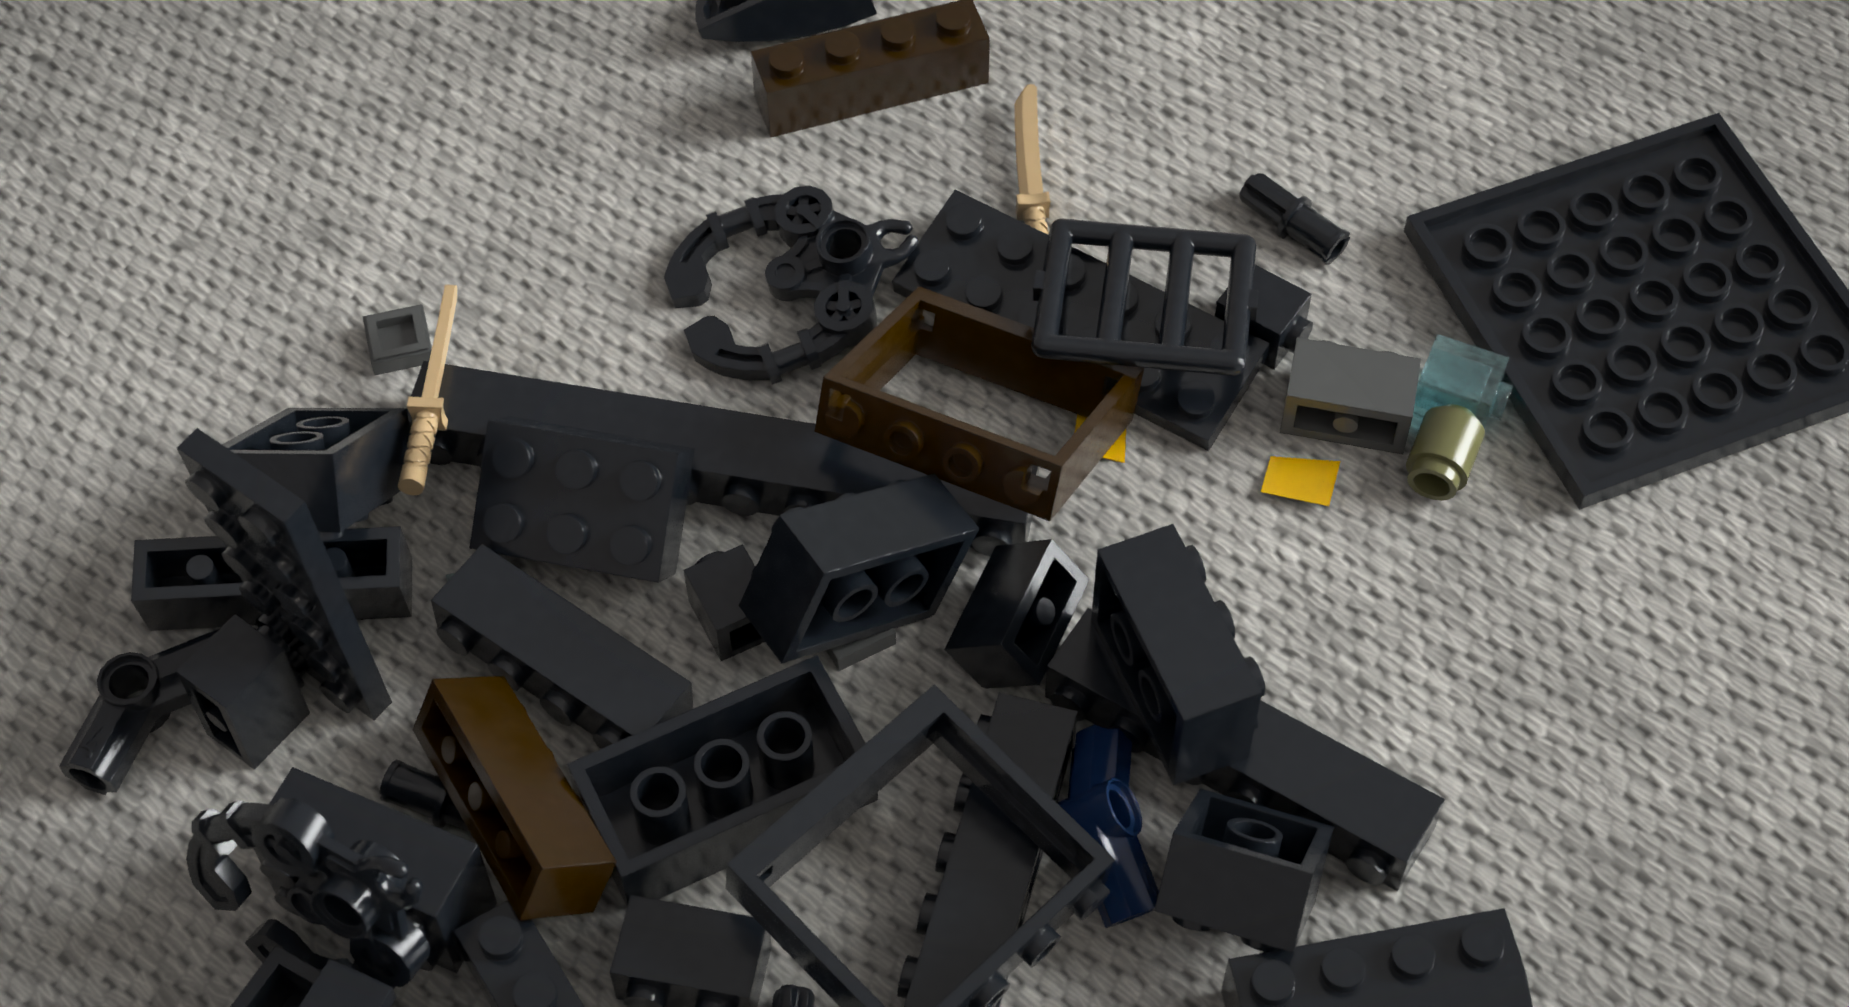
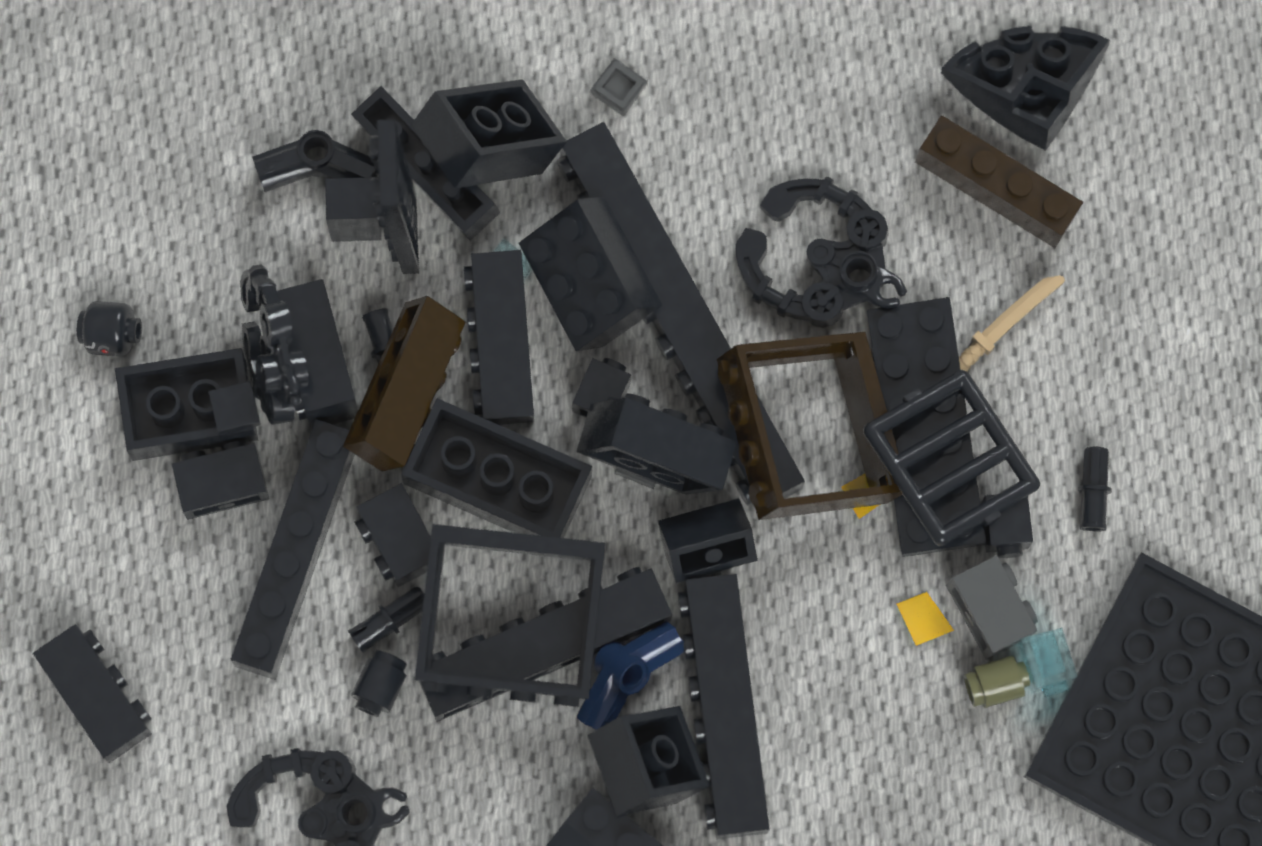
camera: 45 degrees right, 20 degrees up
(428, 411) = (570, 155): tan sword -> none
(1176, 653) = (727, 642): black brick -> none

